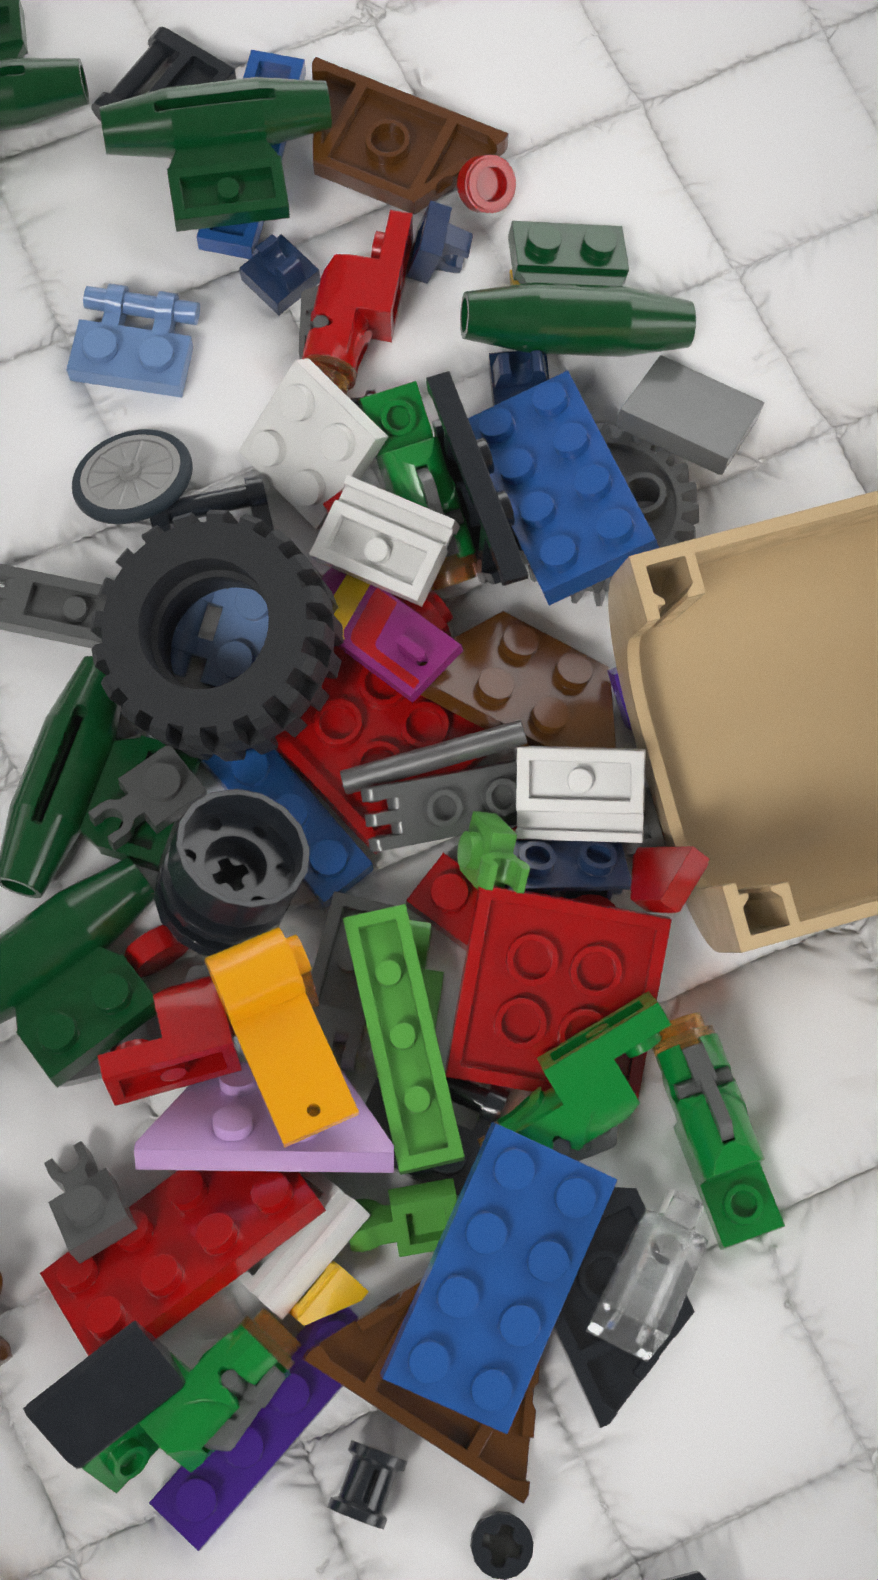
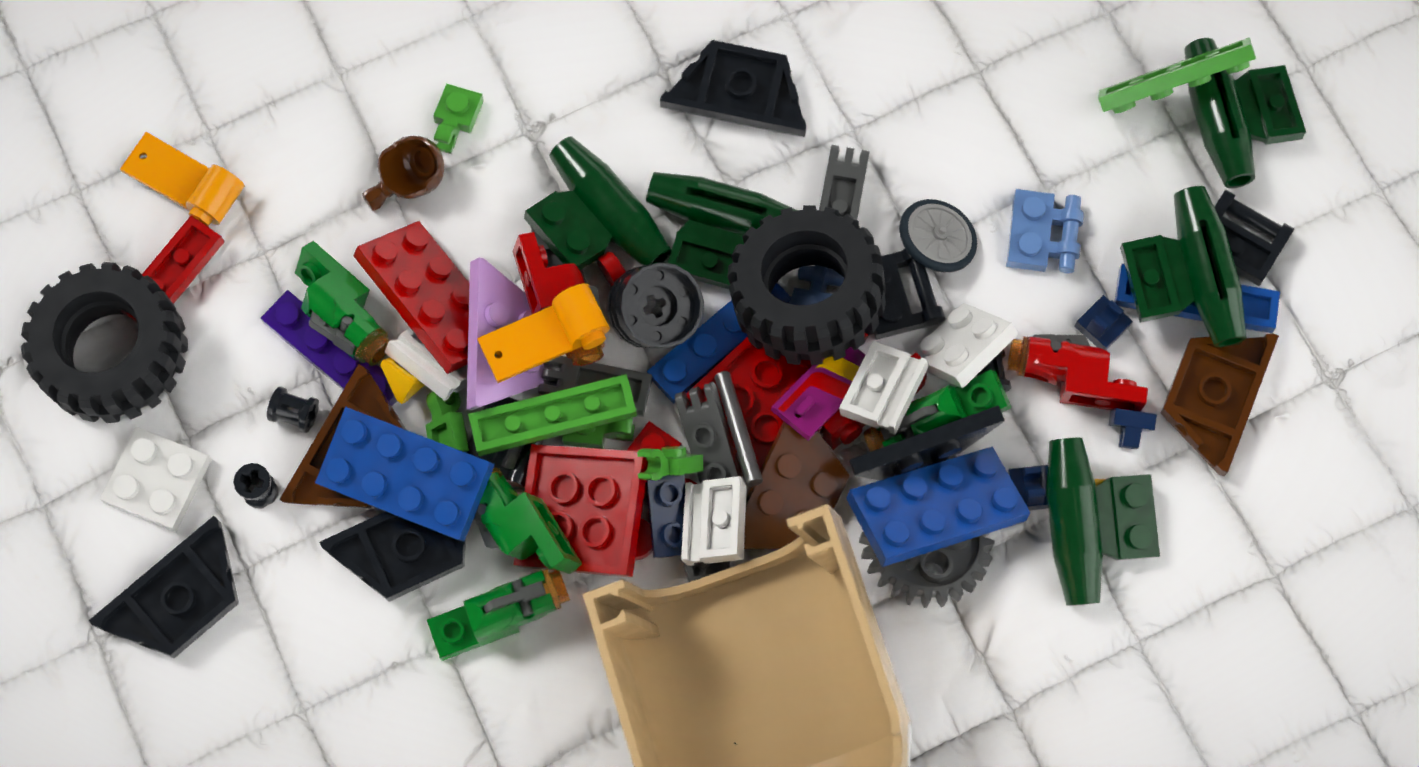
camera: 90 degrees right, 0 degrees up
(91, 1208) = (453, 244): dark grey plate -> none
(106, 1395) = (341, 255): black slope -> none
(154, 792) = (709, 260): dark grey plate -> none
(486, 184) = (1185, 459): tile -> none
(647, 1295) = (388, 549): clear torso -> none
(665, 877) = (654, 571): red tile -> none
(689, 414) = (1006, 601): tile -> none

